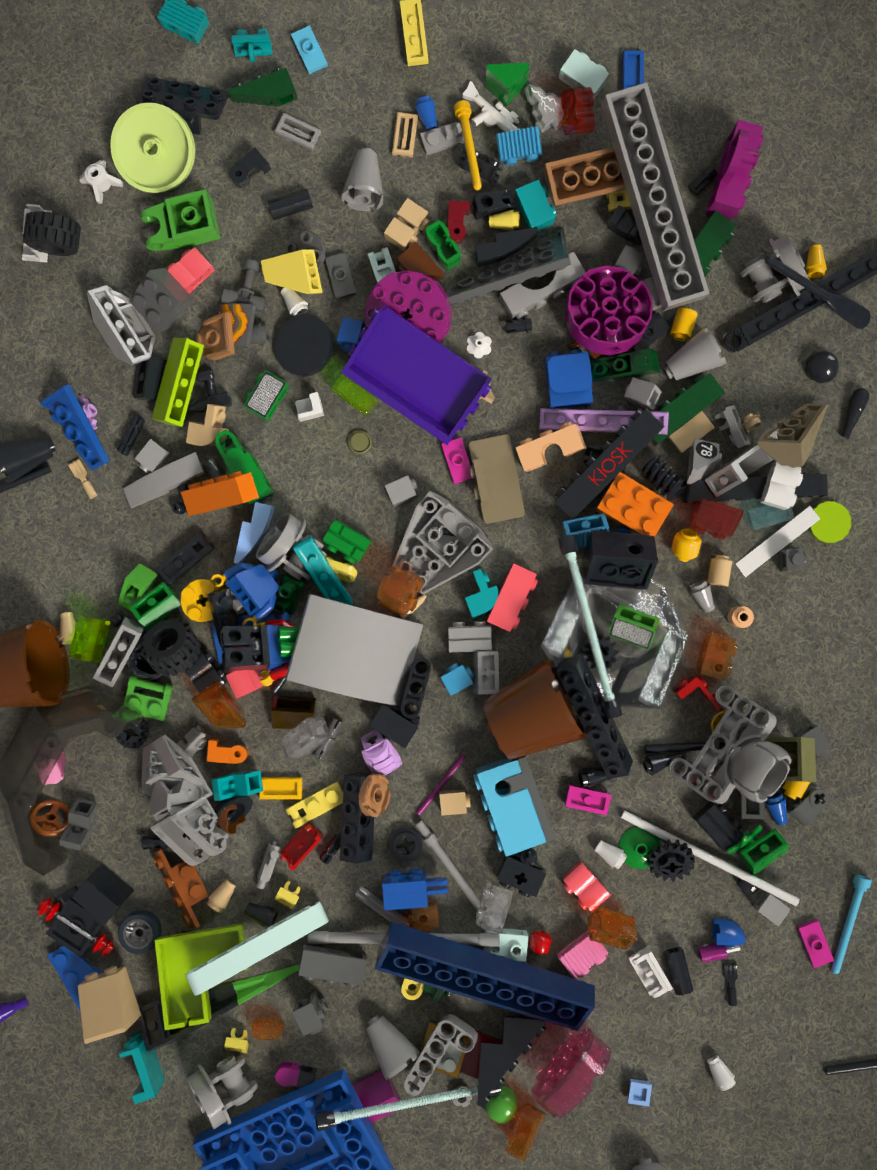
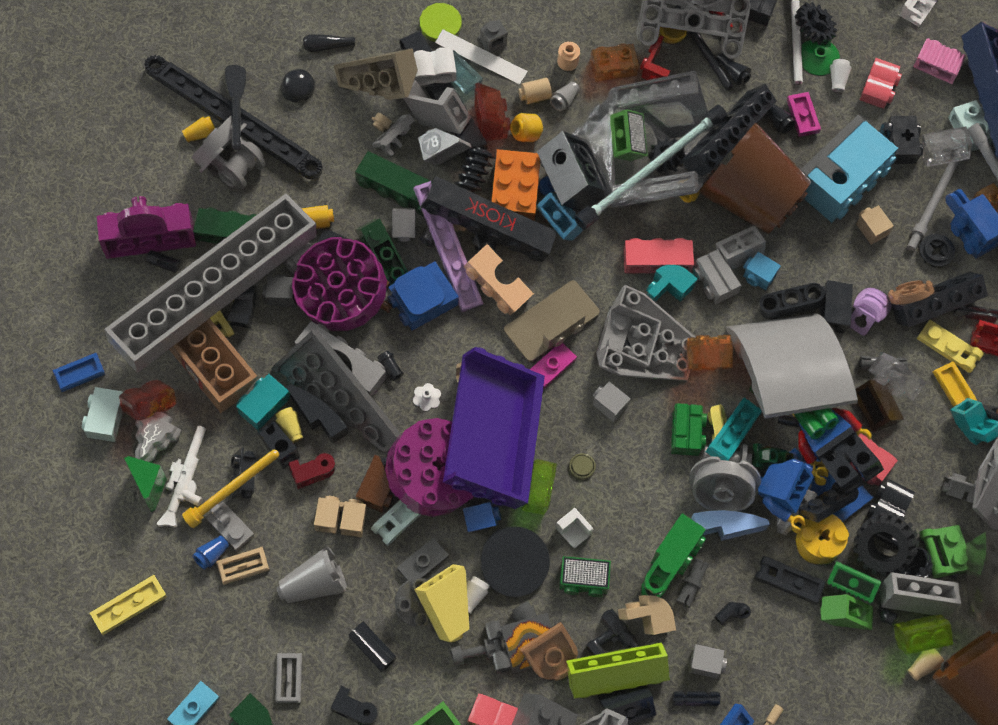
camera: 120 degrees left, 20 degrees down
(163, 480) = (725, 637): light grey slope -> none
(219, 494) = (712, 561): orange brick -> none
(220, 707) = (915, 471): clear orange slope -> none
(226, 754) = (953, 448): orange leg -> none
(440, 243) = (342, 473): green brick -> none
(441, 784) = (864, 245): magenta axle -> none
(519, 145) = (207, 441): dark azure brick -> none
(540, 942) = (951, 98): red piece -> none
(612, 928) = (903, 43): clear orange brick -> none
(693, 429) = (418, 166): tan tile -> none
(695, 357) = (344, 191): light grey cone -> none

